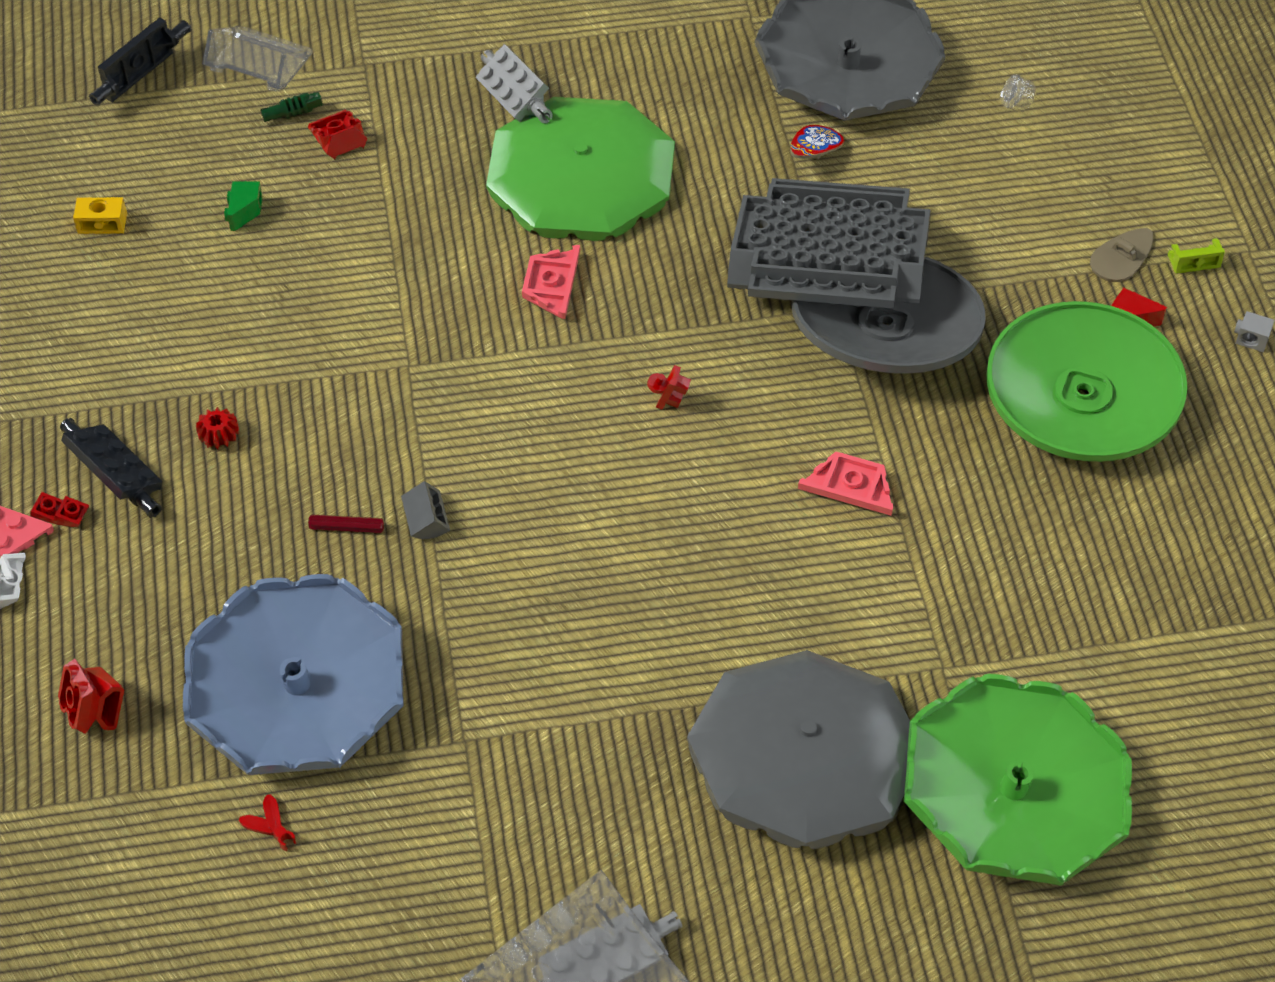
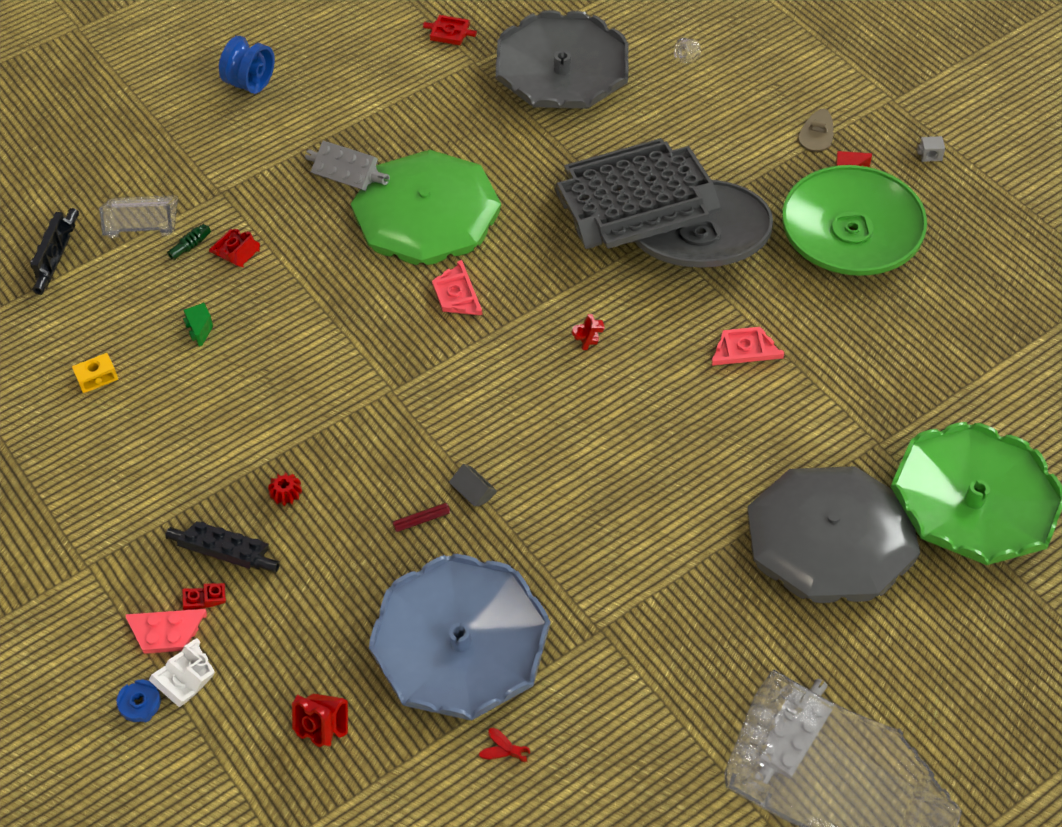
camera: 25 degrees left, 0 degrees up
(815, 141) = (576, 130): shield -> none
(1196, 258) = (866, 115): lime hinge -> none

